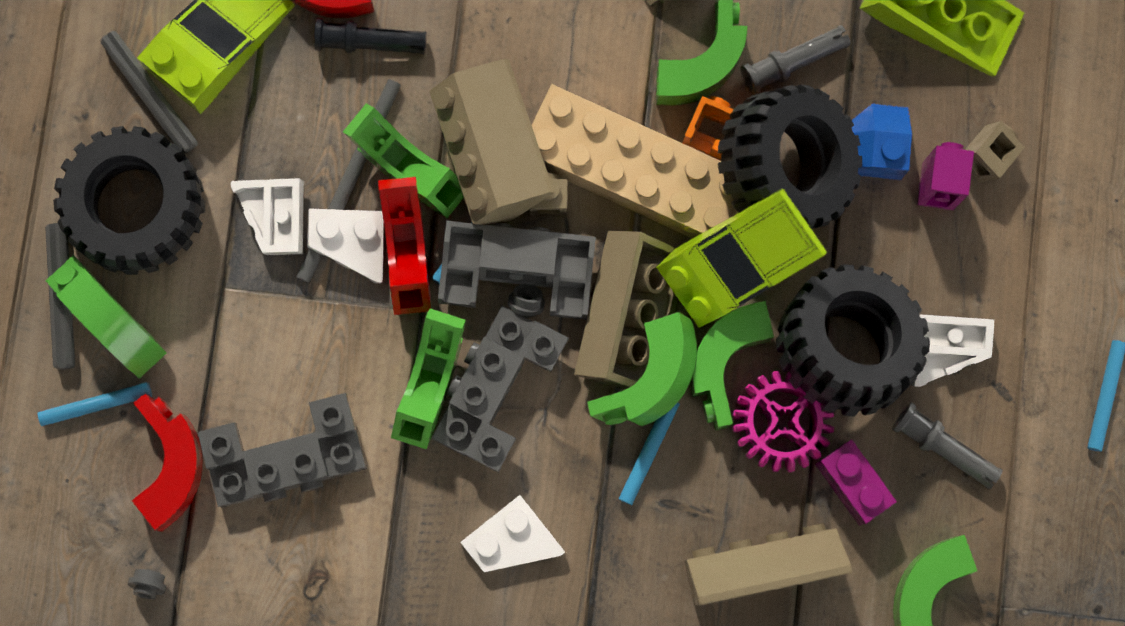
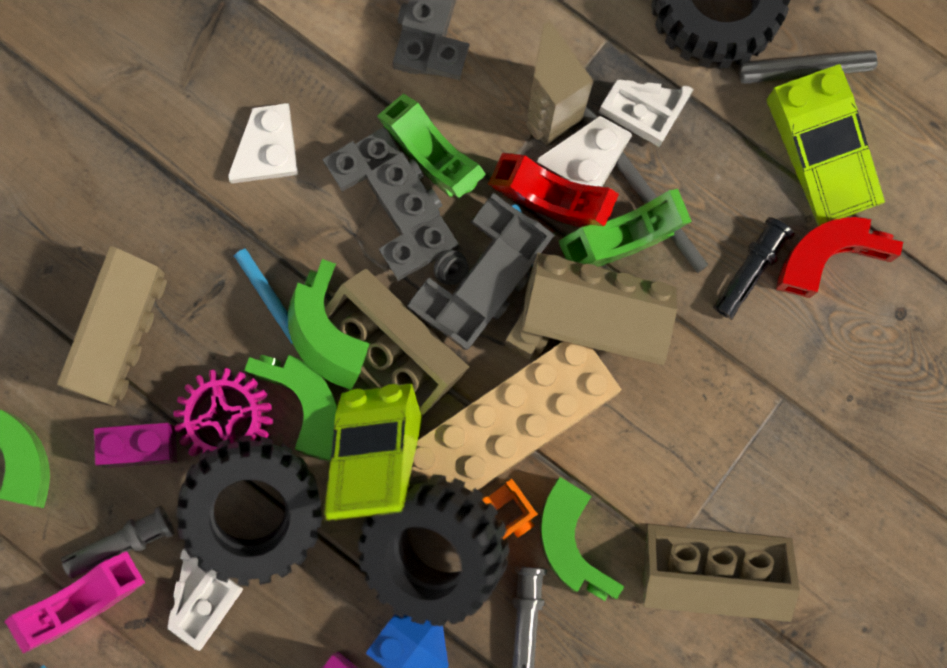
camera: 120 degrees right, 0 degrees up
(314, 290) = (558, 89): none -> dark tan slope
(1020, 448) = (76, 603): none -> dark pink arch

